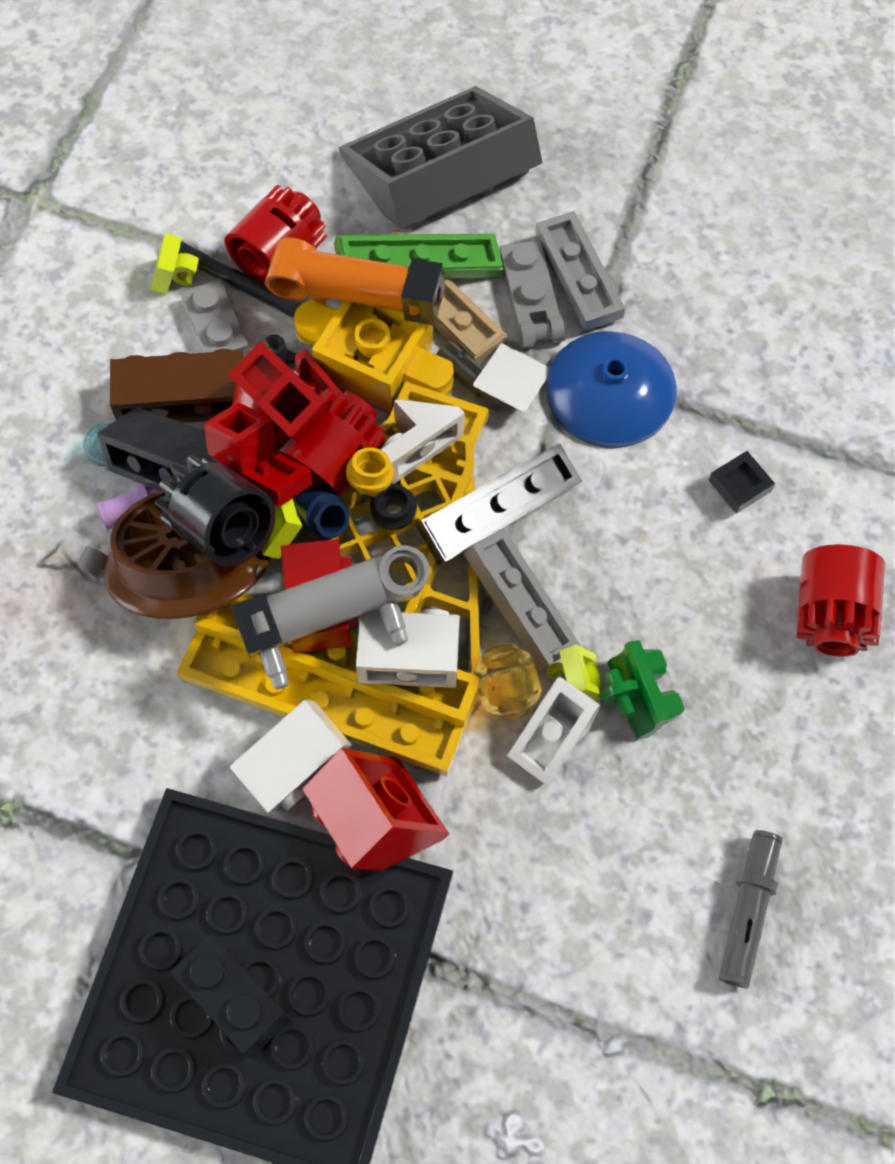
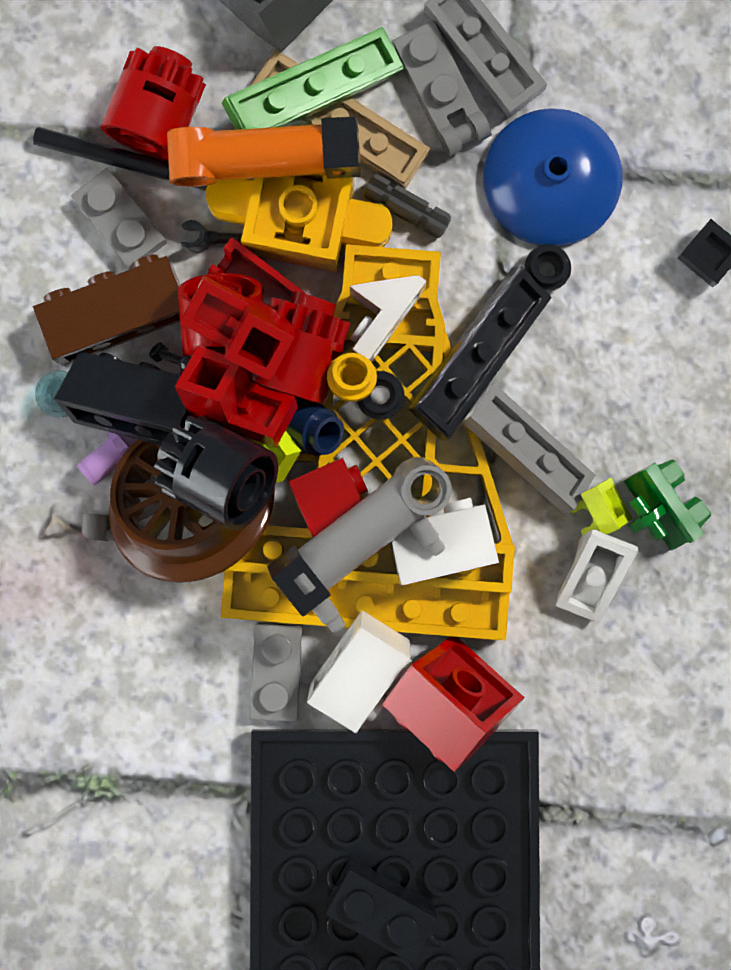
camera: 15 degrees left, 20 degrees up
(173, 265) = (50, 167): neon yellow tile -> none
(212, 745) = (276, 672): none -> light grey plate
(507, 681) = (538, 537): clear yellow head -> none
(512, 377) = (450, 198): white sticker -> none
(591, 447) = (557, 258): none -> black plate

